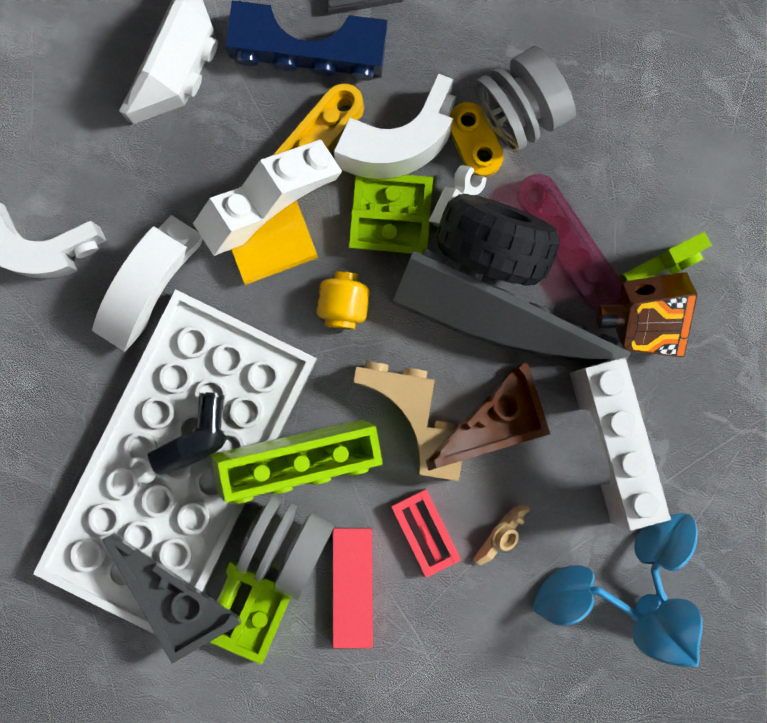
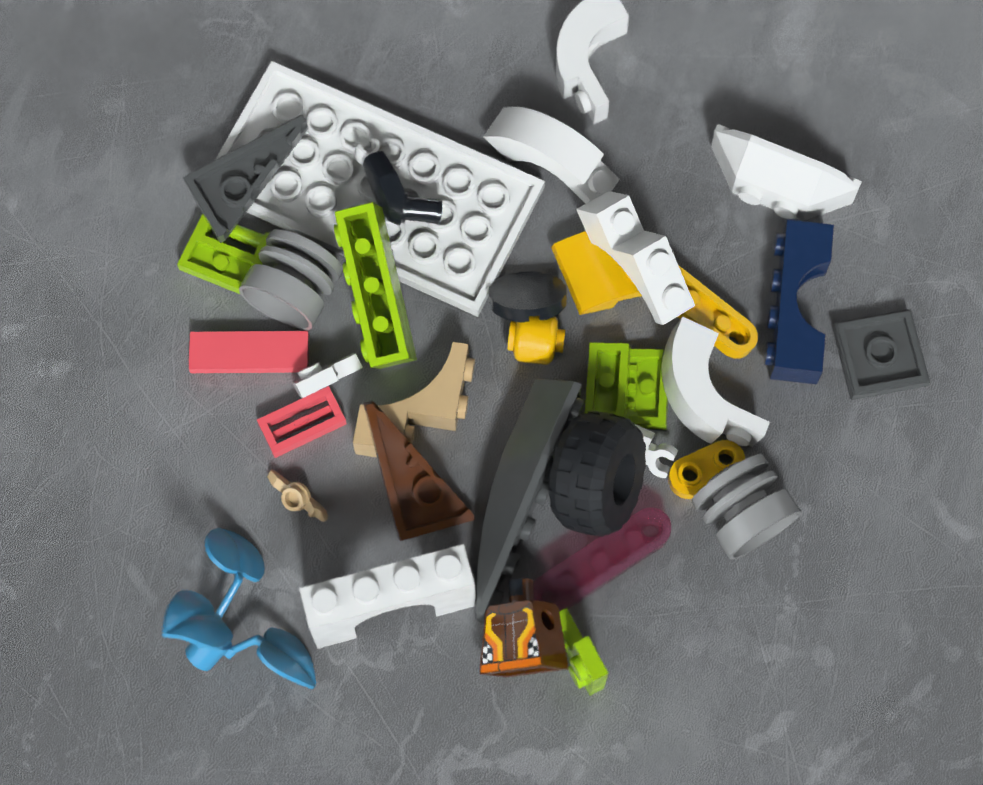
camera: 95 degrees right, 15 degrees down
(302, 307) = (526, 295): none -> black tile
(384, 513) = (317, 377): none -> white plate

